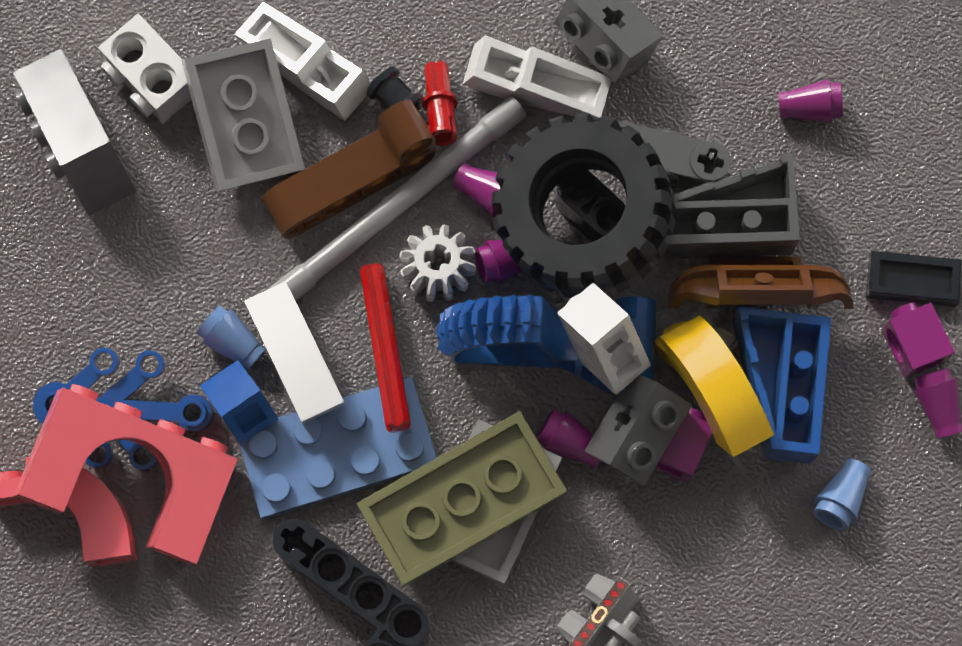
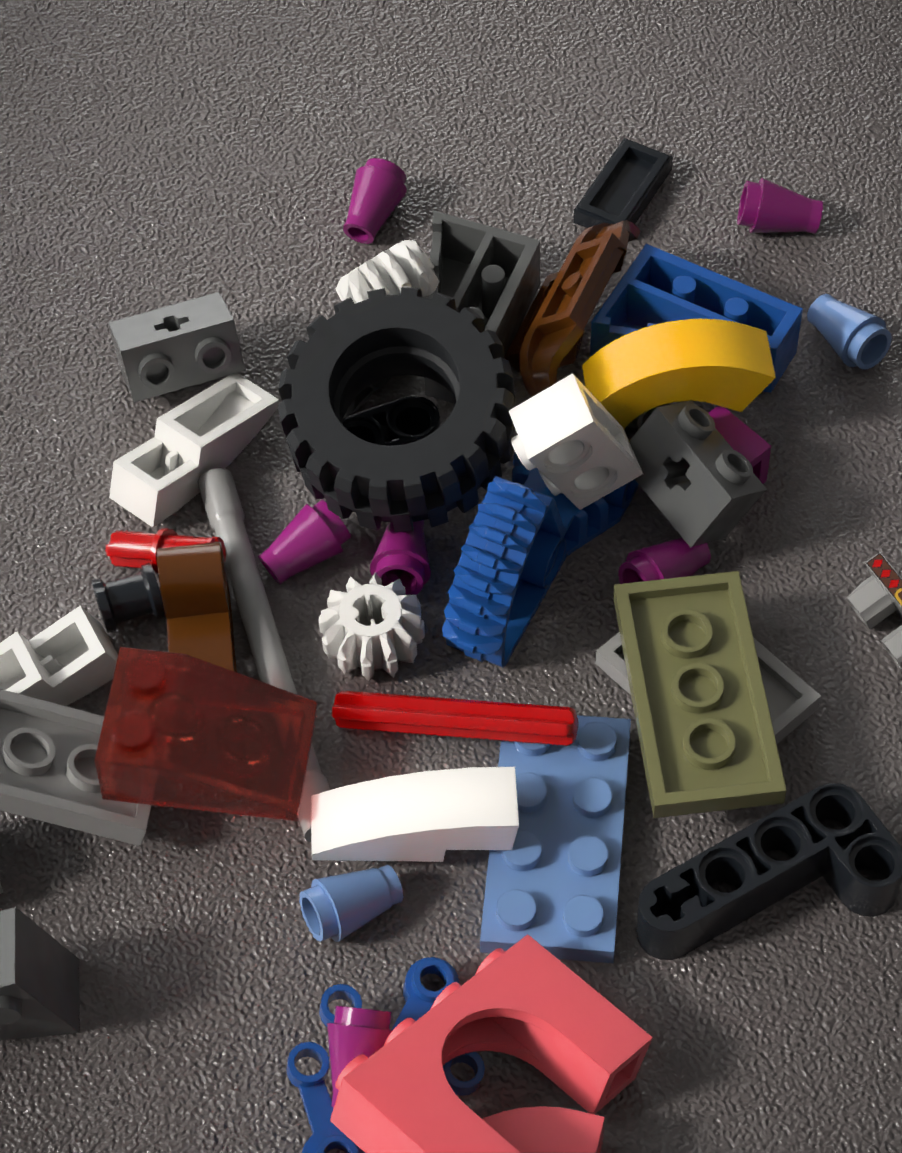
camera: 65 degrees left, 20 degrees down
(122, 384) = (355, 1033): none -> magenta cone
(239, 402) = (447, 911): blue brick -> none
(286, 197) = (202, 738): none -> clear red slope
(693, 151) = (394, 268): none -> white gear
(917, 339) = (698, 202): magenta brick -> none

